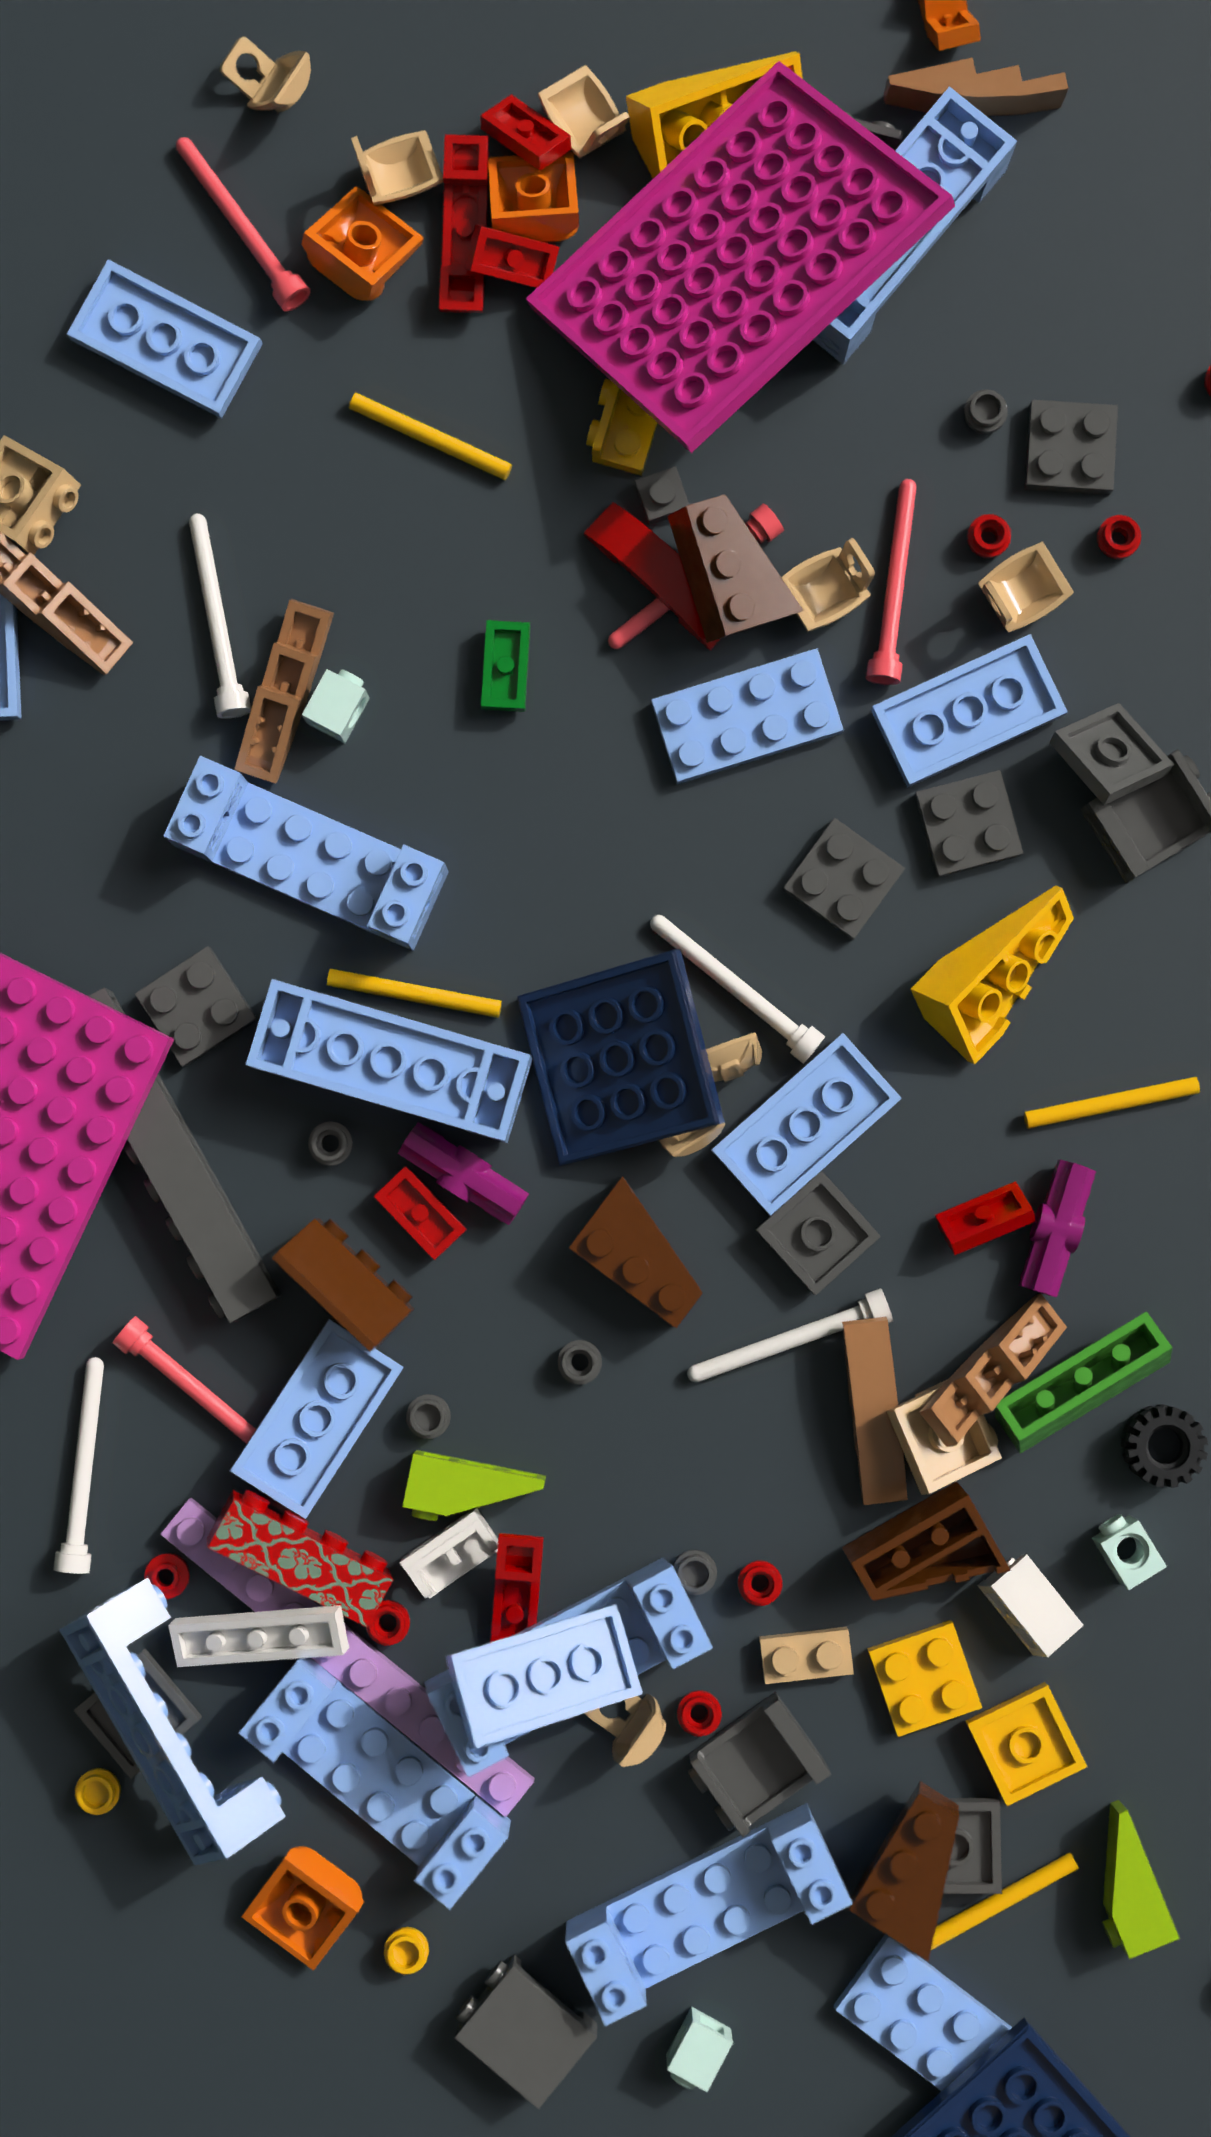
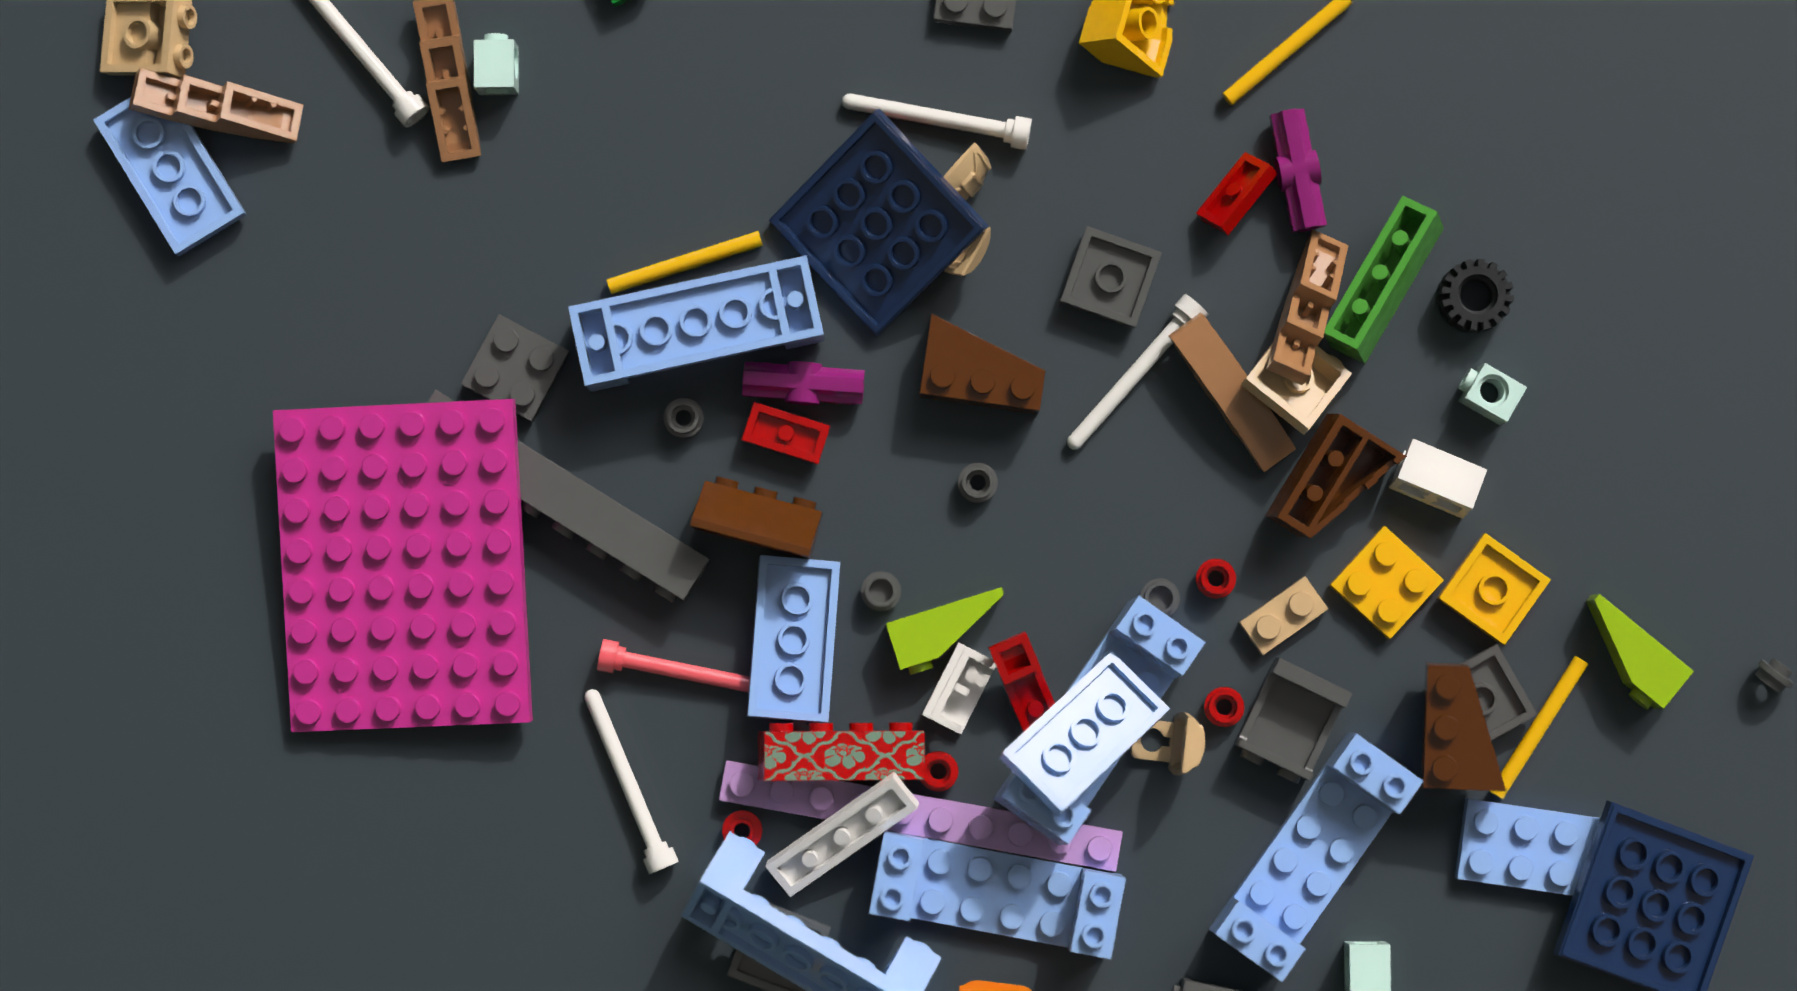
camera: 30 degrees left, 0 degrees up
(305, 854) = (538, 198): light blue plate -> none
(806, 1124) = (1054, 196): light blue plate -> none

